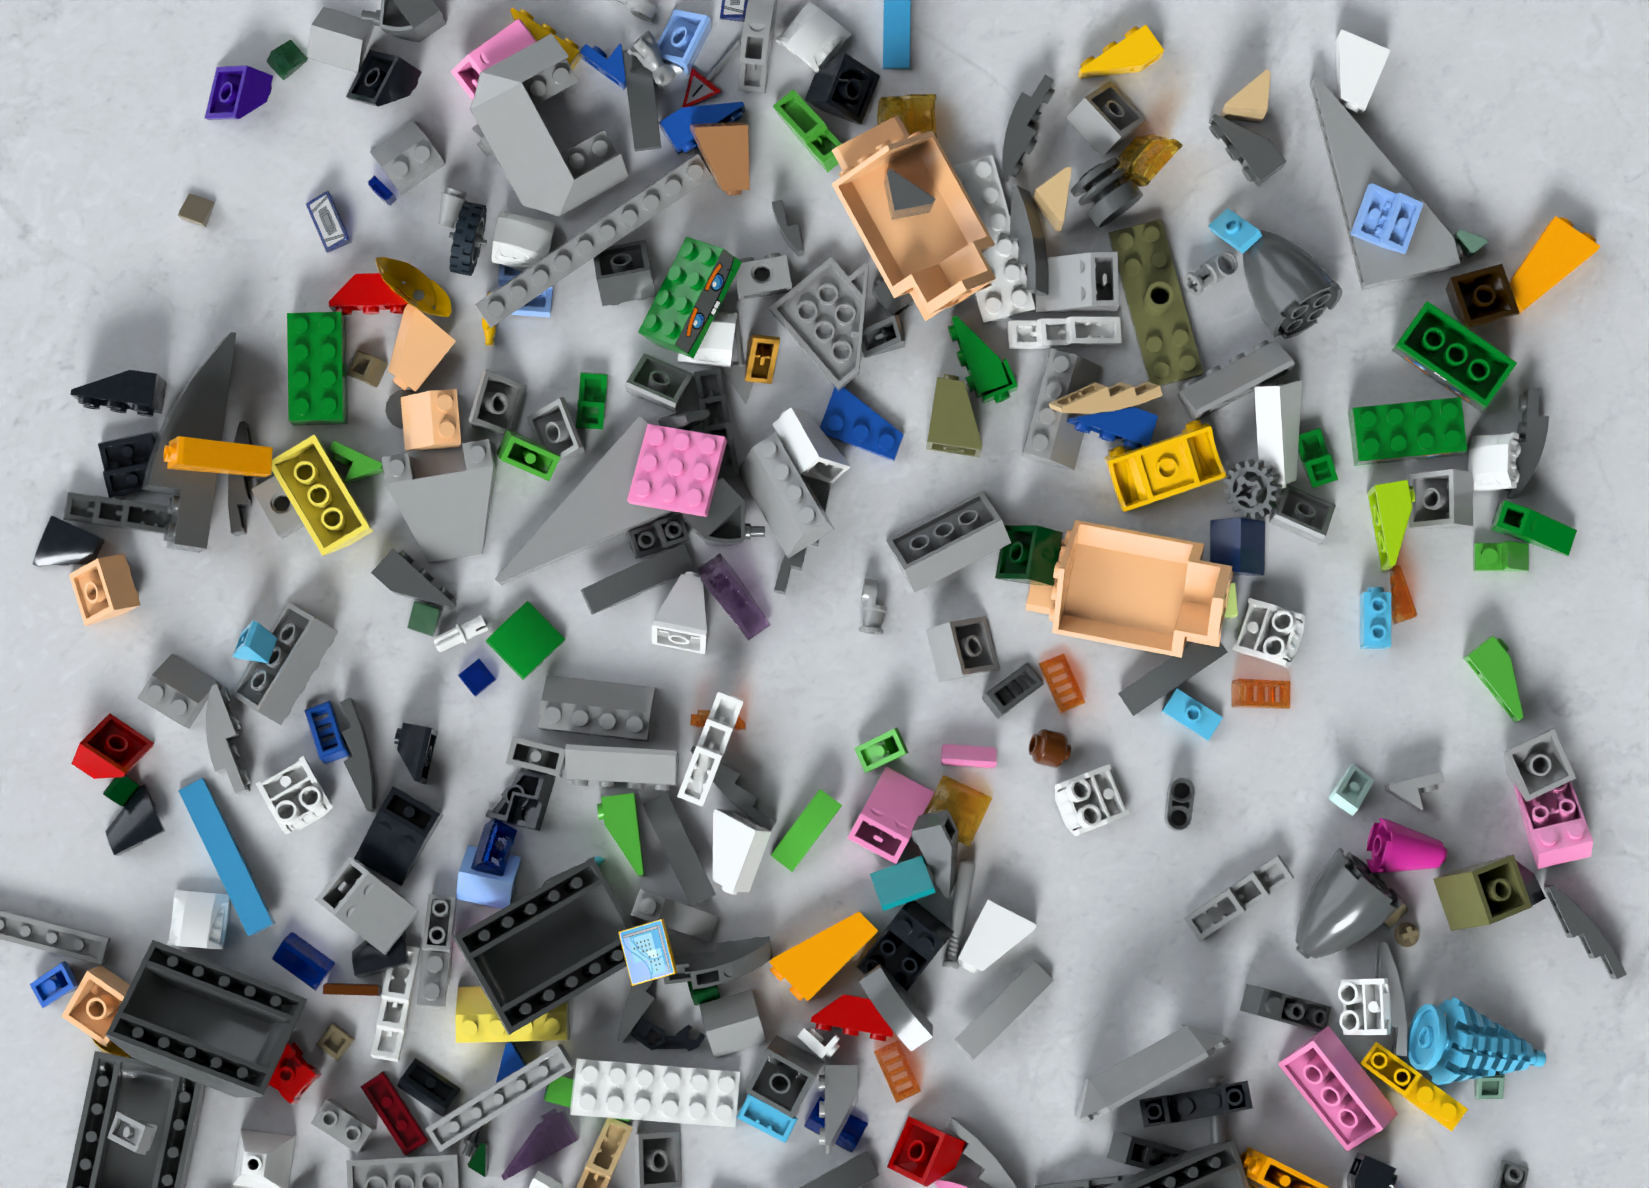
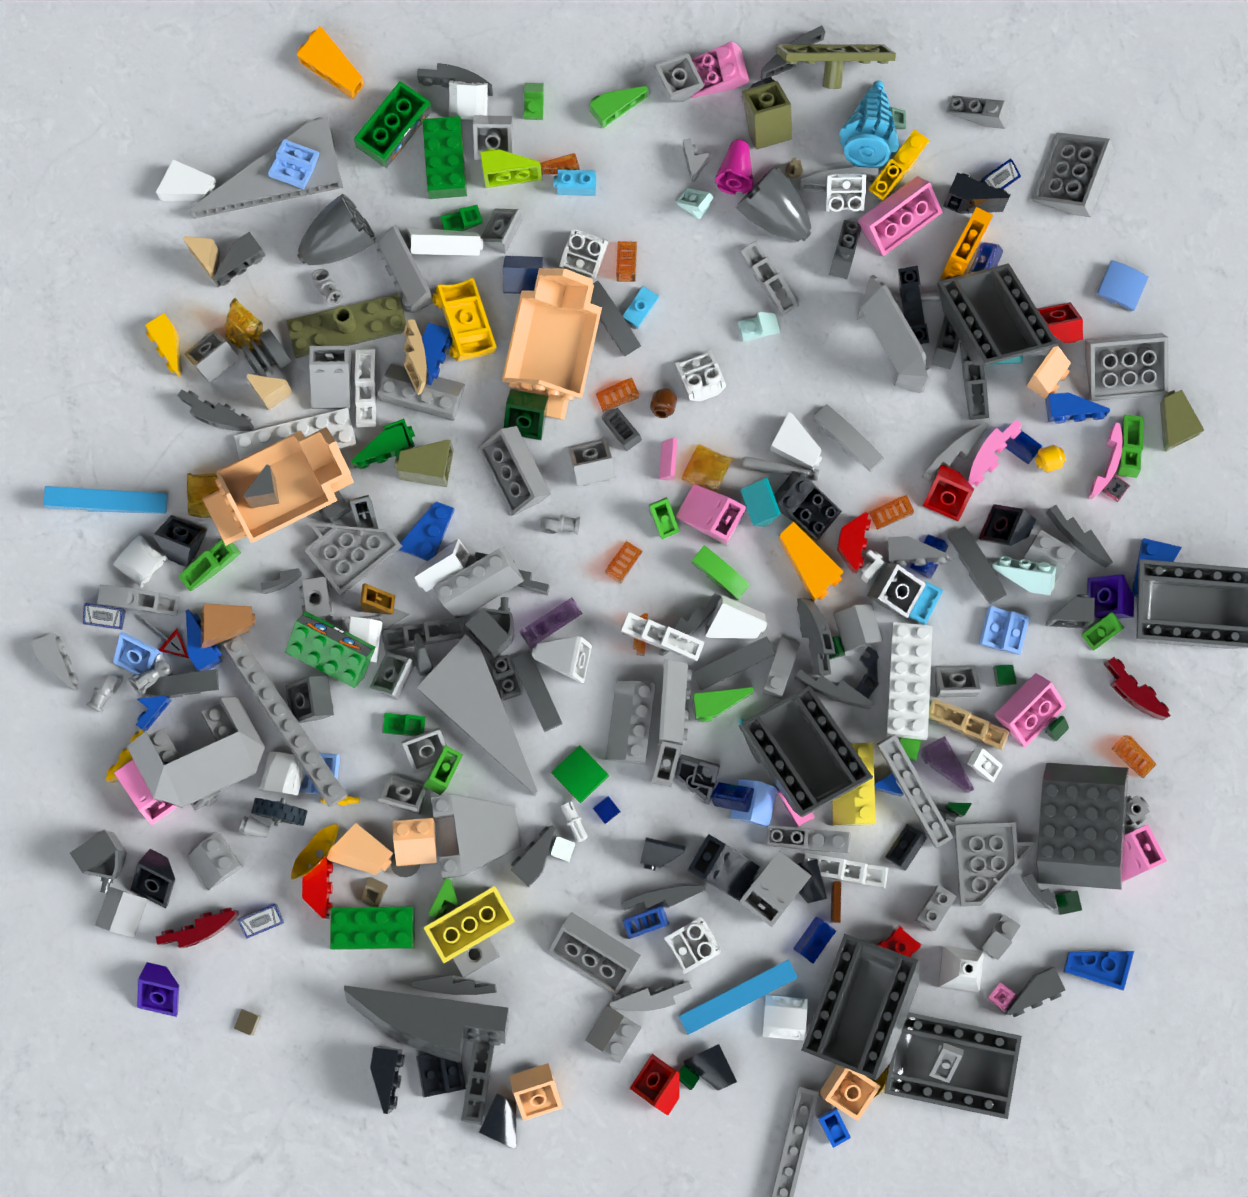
camera: 90 degrees left, 5 degrees down
(218, 457) = (439, 997): light orange slope -> none
(255, 644) = (579, 975): medium azure slope -> none
(286, 59) = (134, 953): clear green slope -> none
(317, 148) = (206, 928): none -> dark red slope
(335, 1041) = (873, 915): dark tan tile -> none
(381, 190) = (239, 879): clear blue tile -> none
(394, 1113) = (925, 872): dark red tile -> none
(647, 952) = (810, 681): piece -> none
(677, 470) = (458, 657): bright pink plate -> none
(797, 691) = (615, 575): none -> clear orange slope
(897, 1007) = (847, 510): dark grey slope -> none
(938, 842) = (728, 477): dark grey slope -> none
(1027, 231) = (292, 410): dark grey slope -> none
(1167, 884) = (760, 326): none -> light aqua slope
(1184, 805) = (704, 312): dark grey beam -> none
(1235, 230) = (297, 268): medium azure plate -> none
(1259, 500) = (475, 261): dark grey gear -> none
(1469, 242) = (312, 112): sand green slope -> none
(1481, 296) = (352, 104): dark brown slope -> none
(1533, 528) = (514, 78): green slope -> none
(1576, 992) = (834, 57): none -> olive plate

